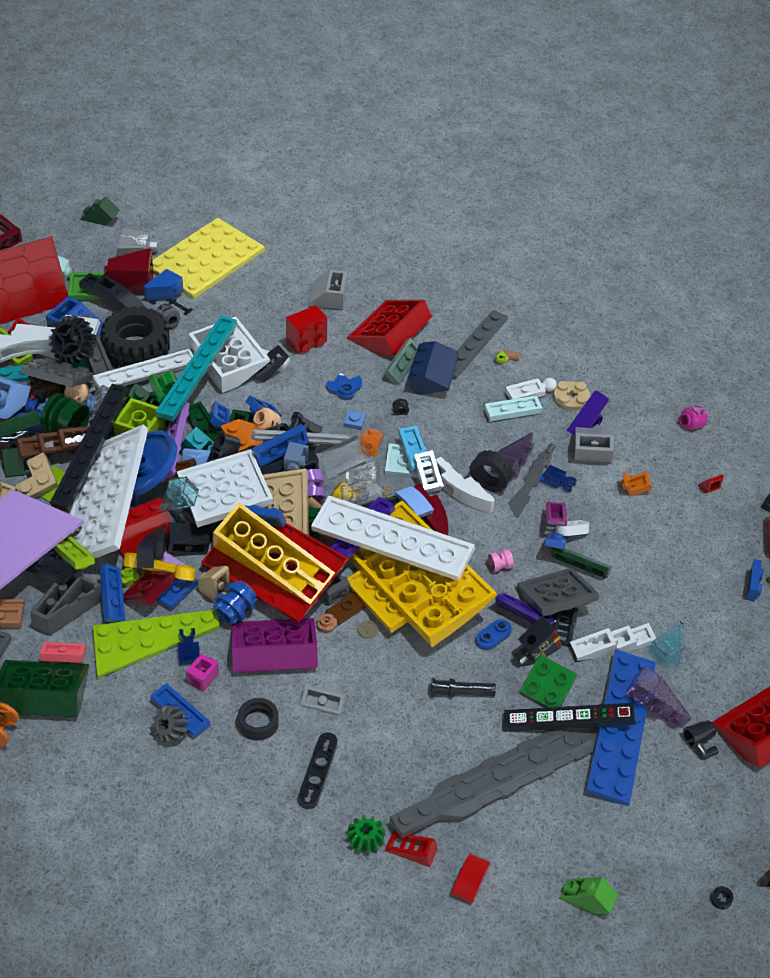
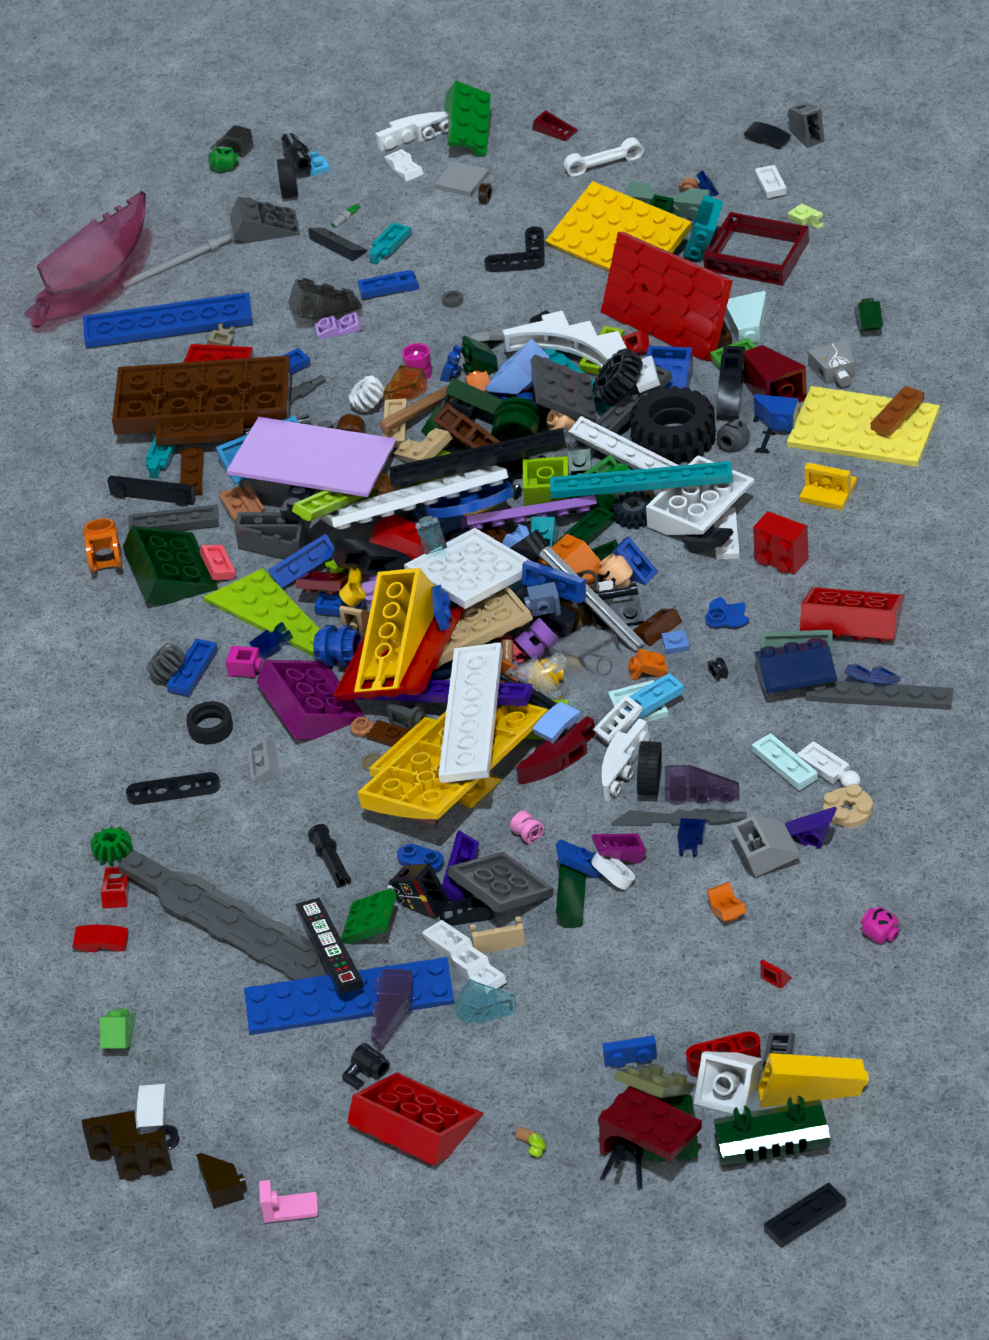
camera: 75 degrees right, 5 degrees down
(206, 392) = (631, 509): none -> black wheel
(213, 234) = (897, 411): none -> dark orange plate
(219, 415) = (598, 533): blue plate -> none
(257, 293) = (827, 486): none -> yellow bracket
(328, 420) = (660, 622): none -> reddish brown slope
(329, 290) = (874, 542): light grey slope -> none
(460, 337) = (877, 675): none -> clear blue slope
(505, 356) = (877, 727): arm -> none
(602, 613) = (498, 938): none -> tan hinge
(684, 896) = (151, 1106): none -> white slope
(739, 923) = (133, 1152): none -> dark brown bracket

